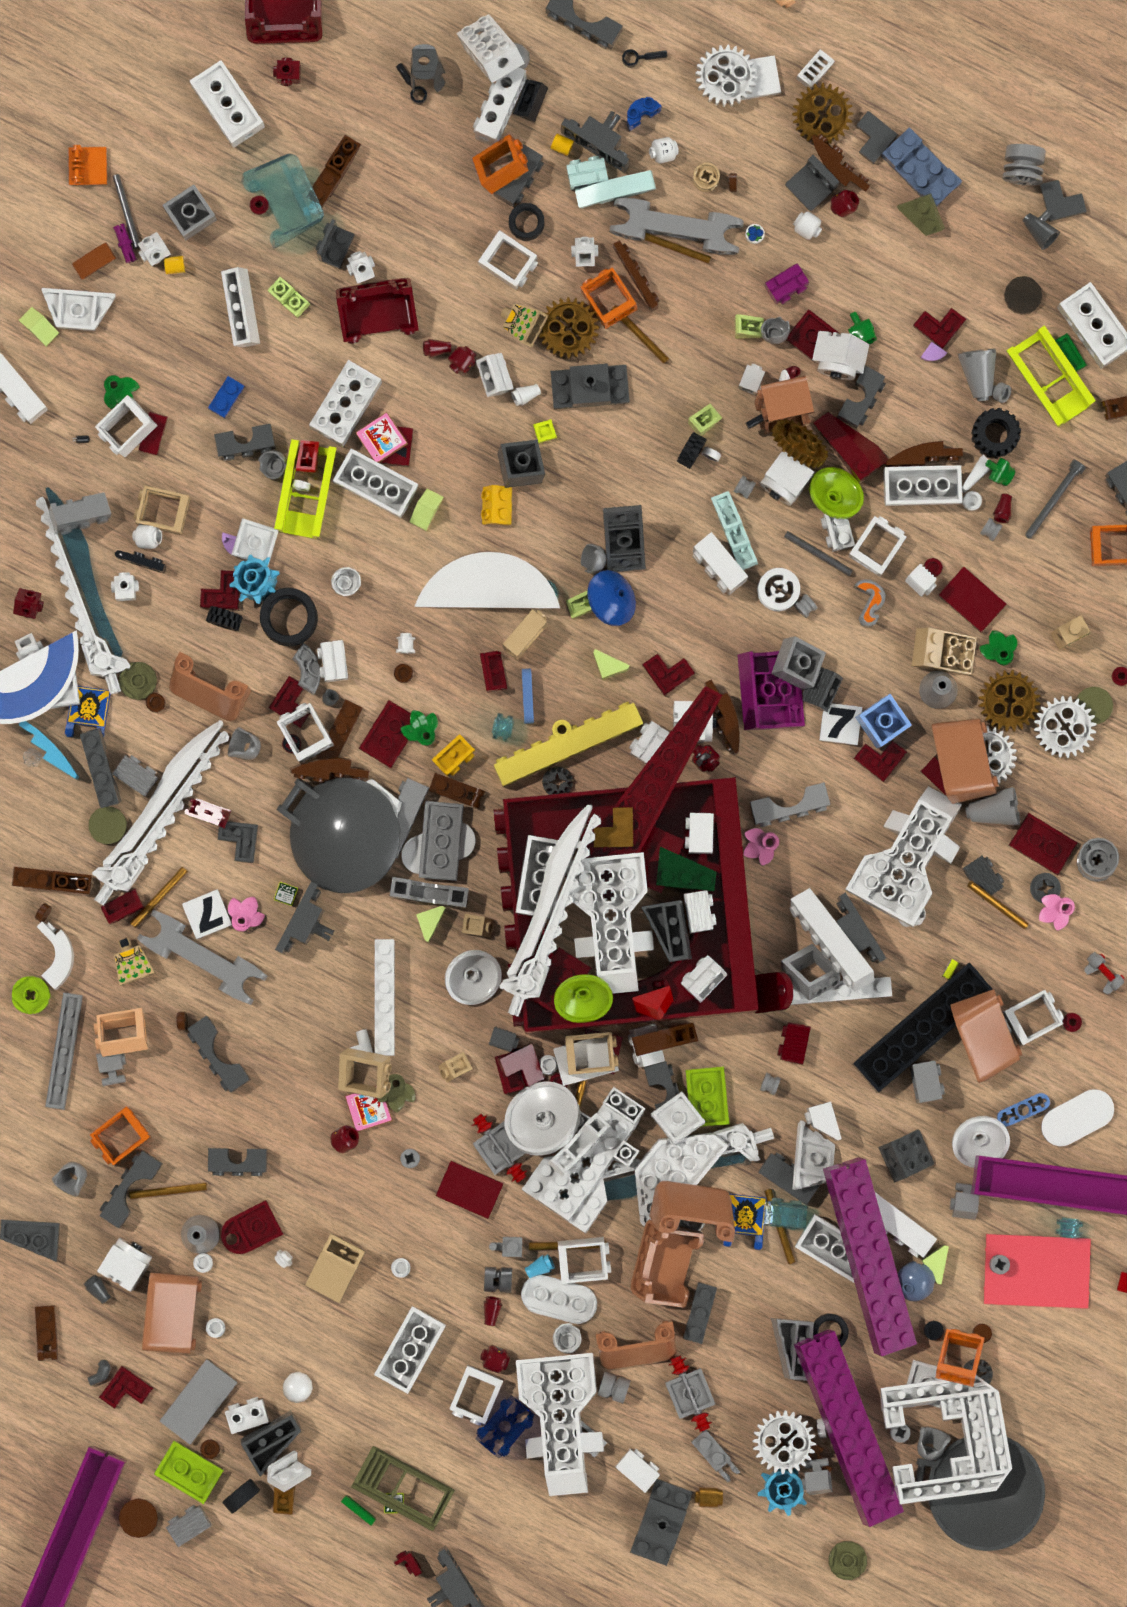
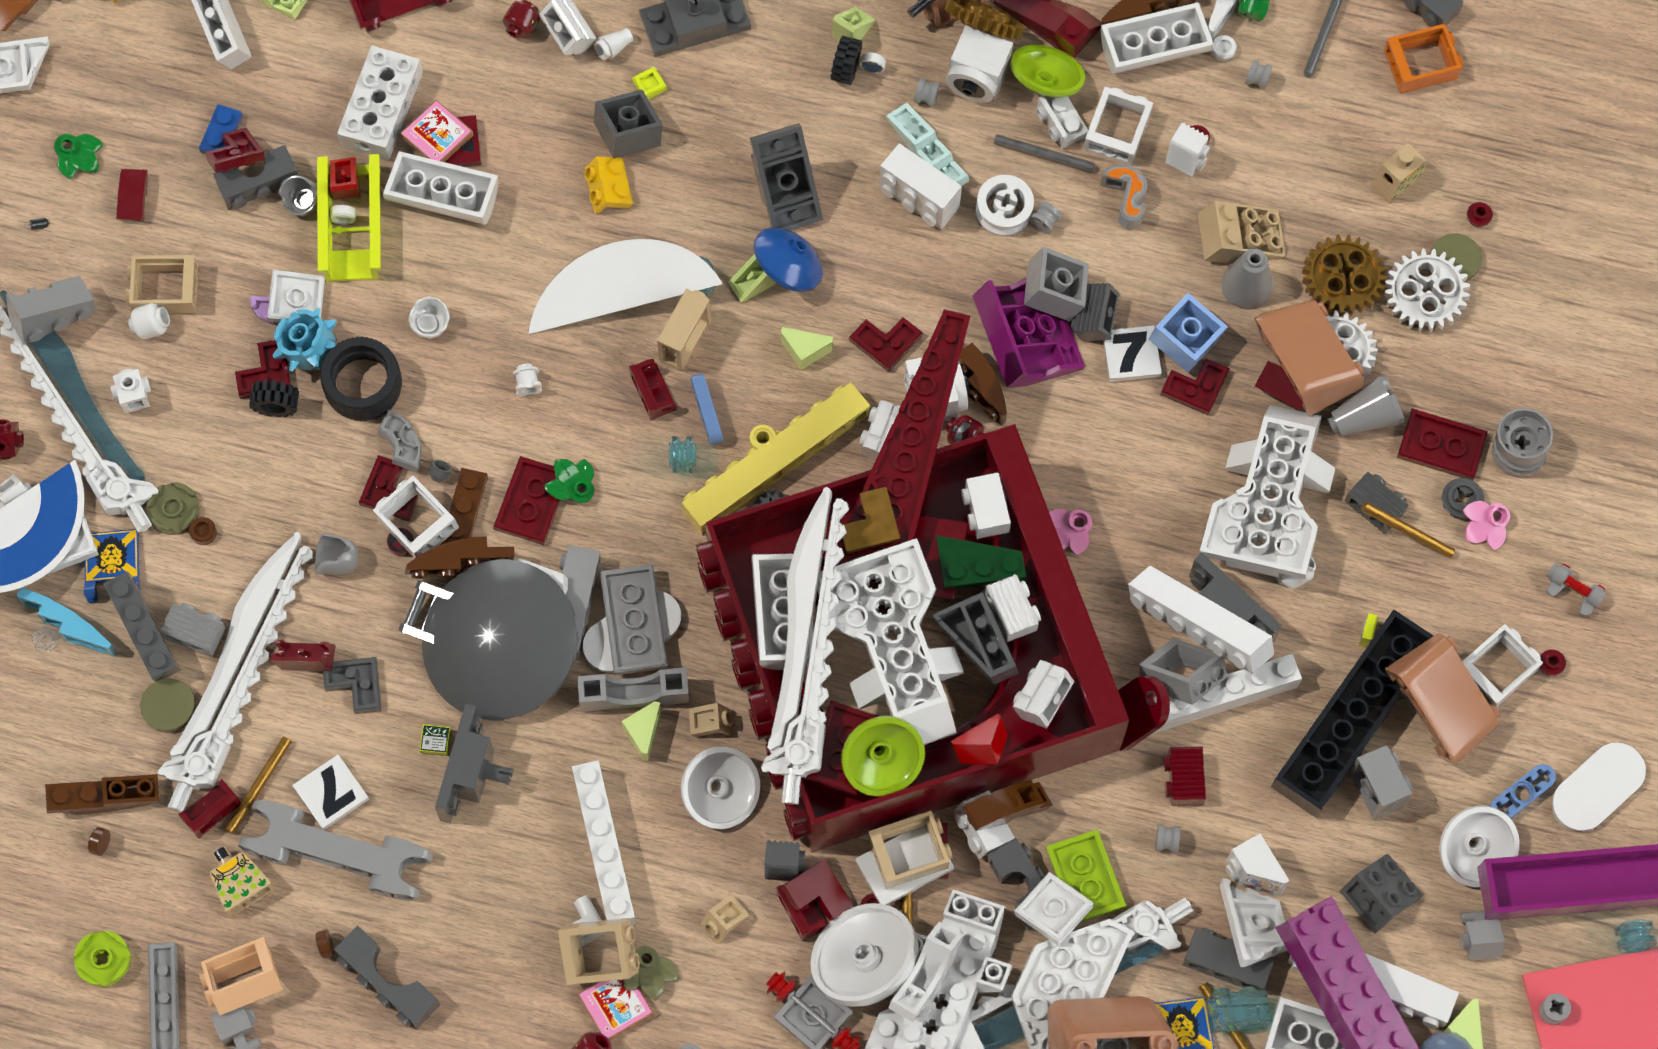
camera: 15 degrees left, 15 degrees down
(64, 955) = (139, 904): white arch -> none
(115, 415) = (78, 180): white window -> none
(139, 560) = (147, 354): black hinge -> none
(224, 704) = (270, 499): nougat windscreen -> none
(236, 424) = (239, 151): none -> dark red plate
(247, 911) = (383, 775): bright pink plate -> none
(333, 661) = (434, 421): white brick -> none
(403, 673) = (532, 419): reddish brown tile -> none
(426, 509) = (515, 210): yellowish green slope -> none
(435, 347) = (483, 13): dark red cone -> none
(454, 755) = (625, 506): yellow bracket -> none
(455, 790) = (638, 552): reddish brown plate -> none
(548, 1064) = (854, 885): white plate -> none
(593, 558) = (751, 218): light grey hair -> none
(766, 810) = (1064, 483): light grey arch -> none
(972, 599) = (1259, 165): dark red tile -> none
(997, 645) = (1310, 212): green plate -> none
(1003, 509) = (1267, 48): dark red cone -> none

